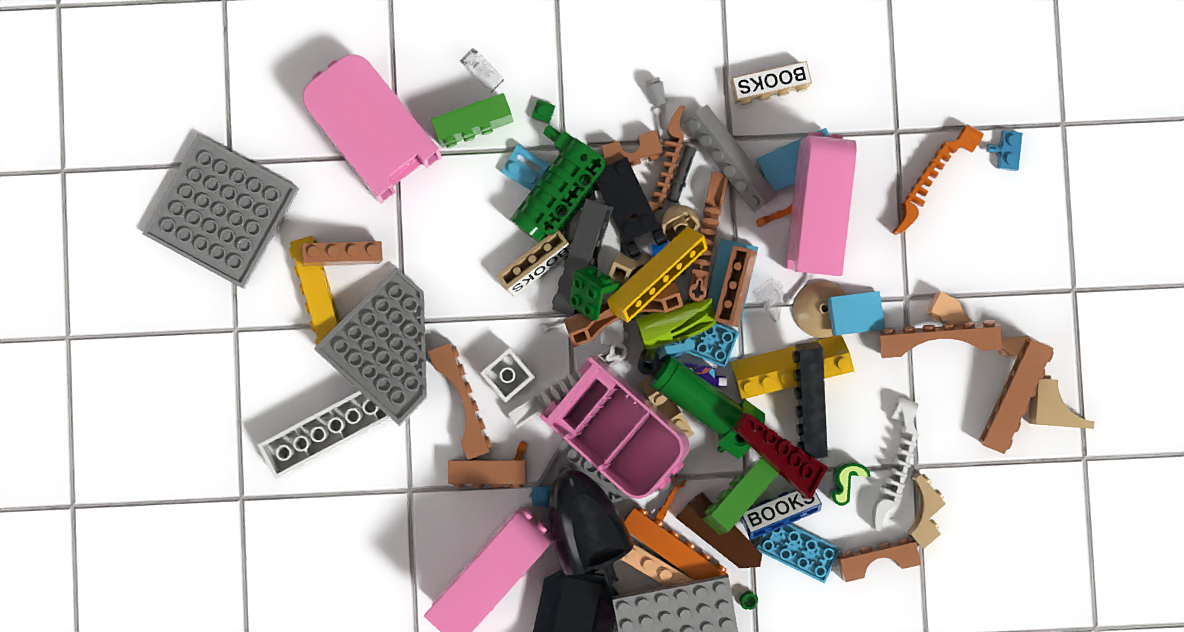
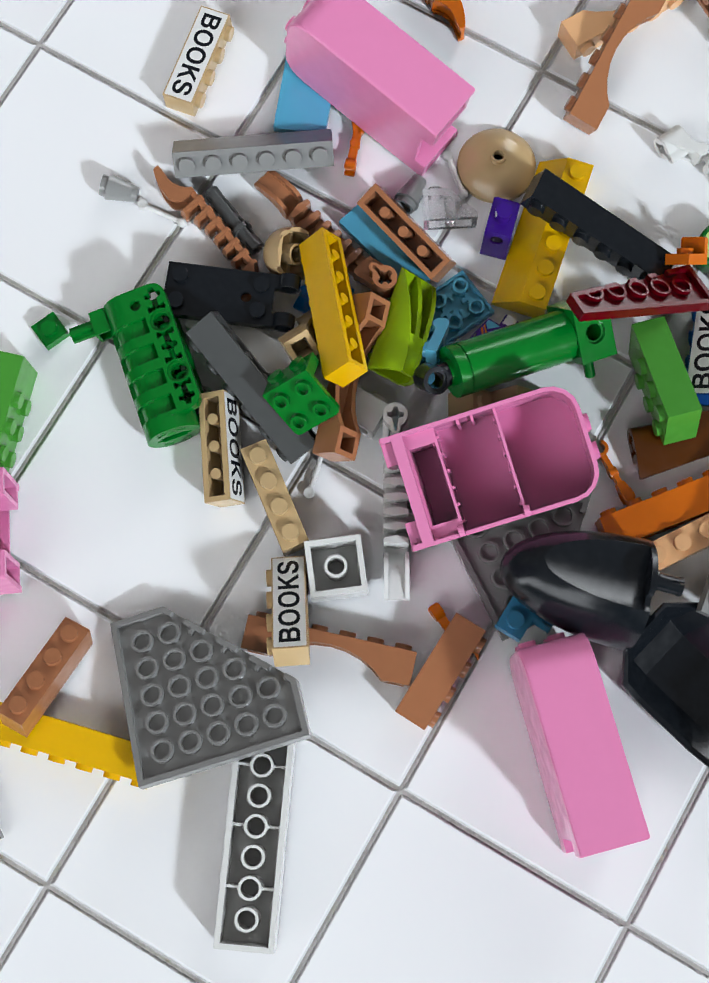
camera: 55 degrees left, 10 degrees down
(464, 366) = (289, 611): none -> brick
(522, 173) = (104, 400): medium azure plate -> none
(527, 312) = (274, 497): none -> tan brick
(648, 149) = (176, 236): nougat arch -> none
(766, 270) = (410, 194): none -> light grey cone
(778, 338) = (501, 225): none -> dark purple torso
(832, 465) = (692, 252): none -> orange bracket
(856, 313) = (526, 127): medium azure tile -> none

